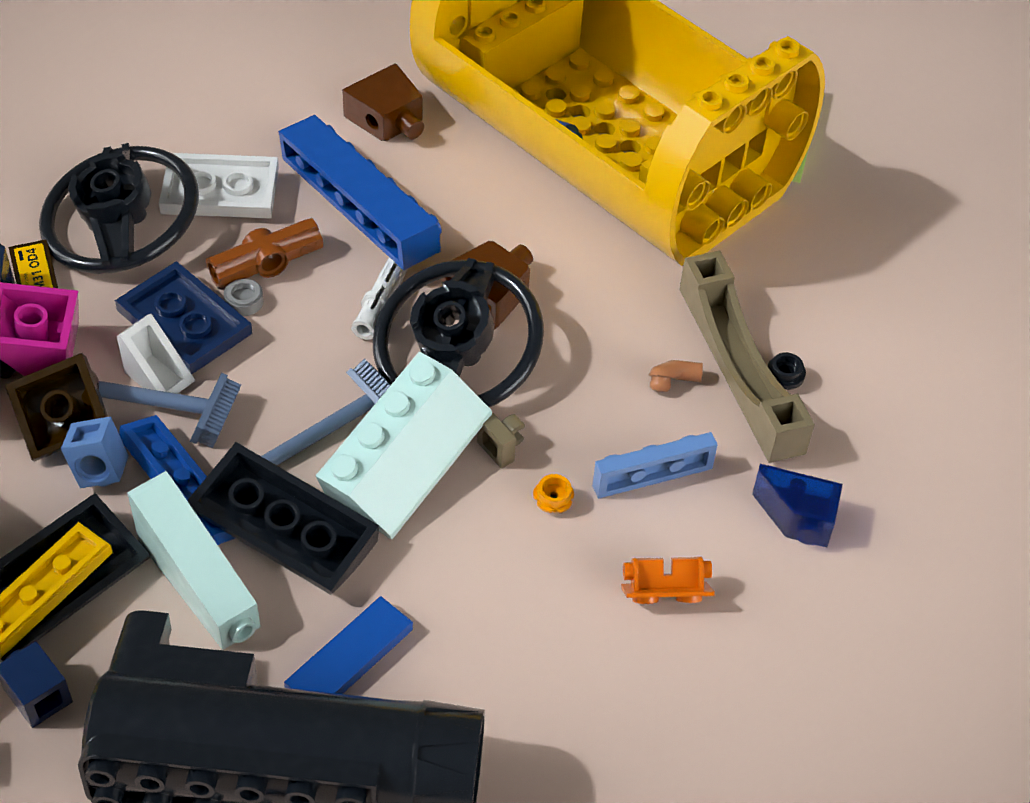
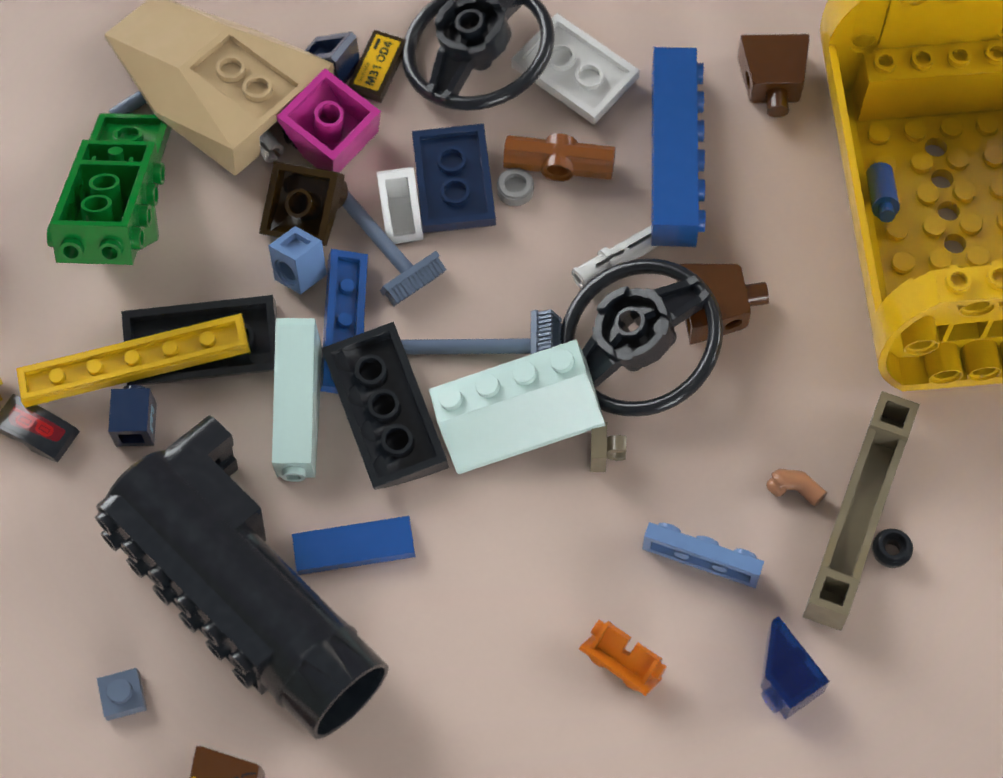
camera: 45 degrees right, 15 degrees up
(553, 485) = (612, 516): light orange plate -> none

